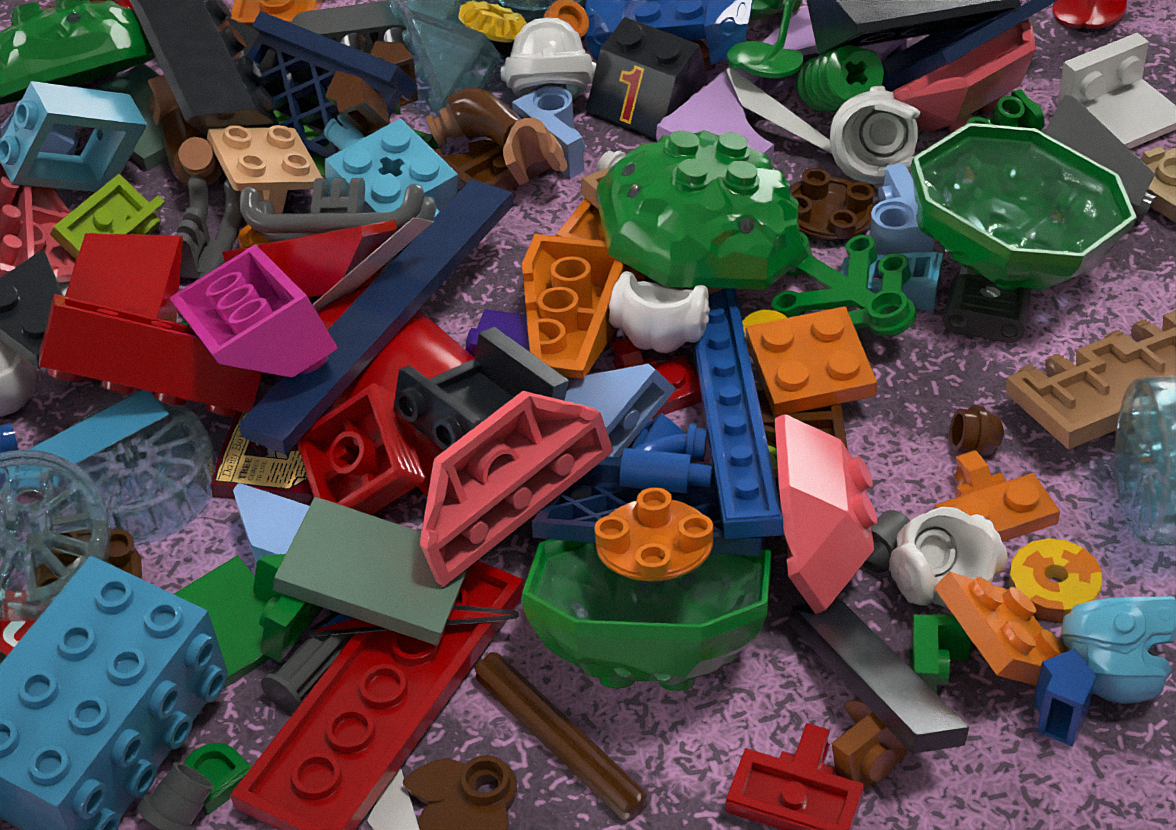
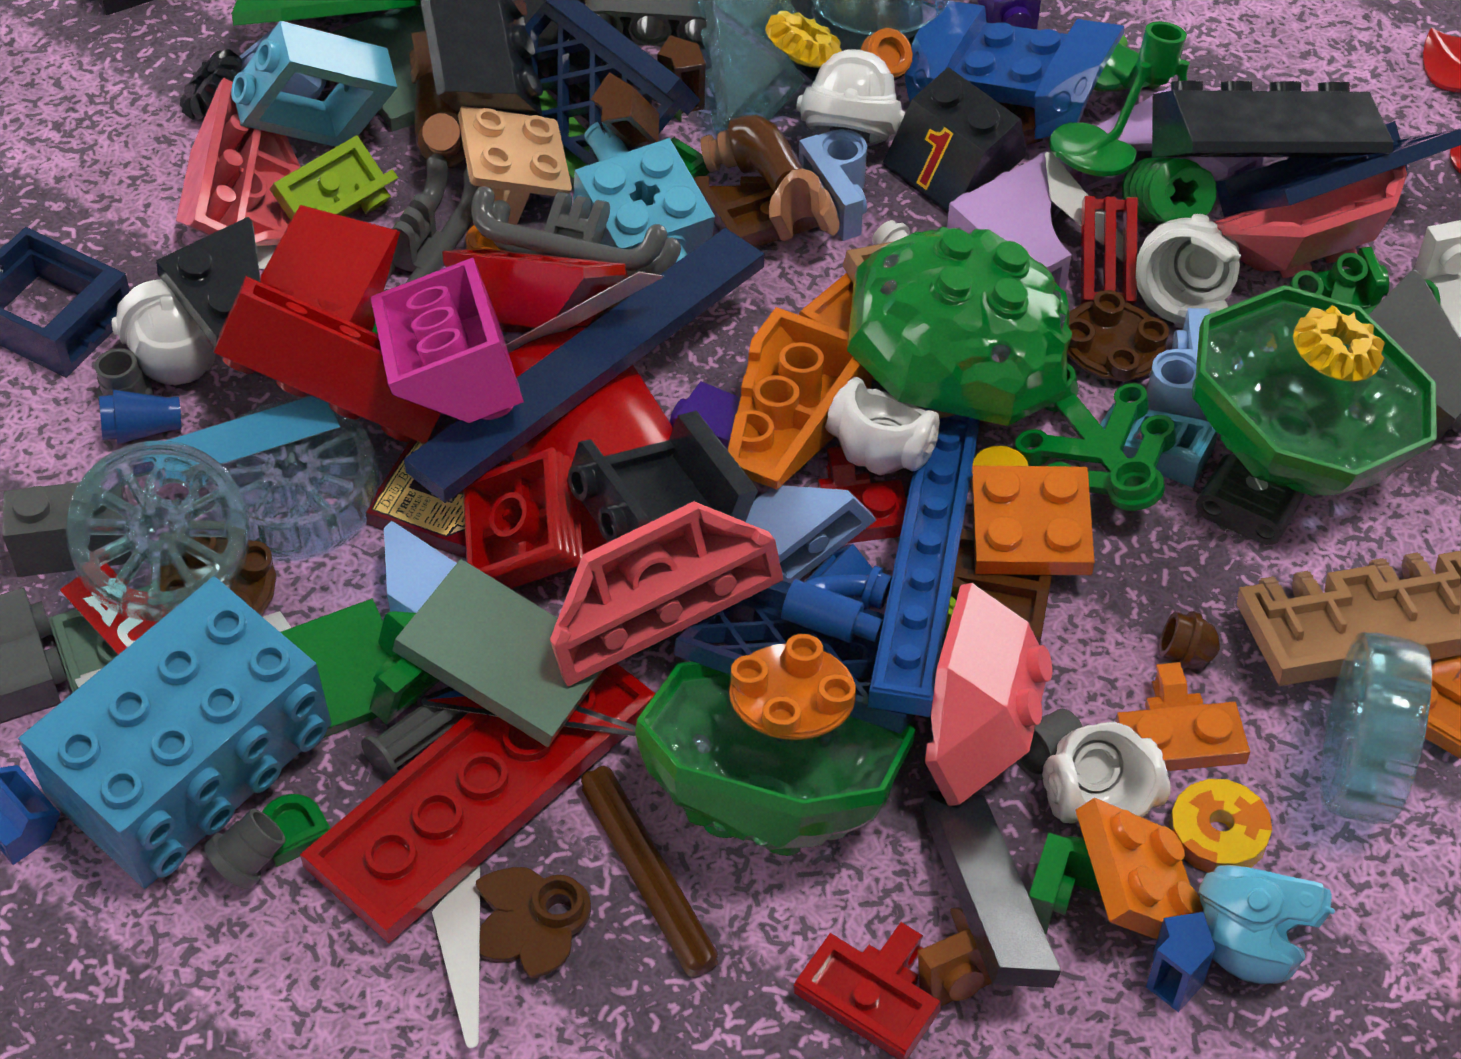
camera: 10 degrees right, 5 degrees up
(795, 101) = (1109, 206): none -> red tile
(1032, 157) = (1328, 354): none -> yellow gear

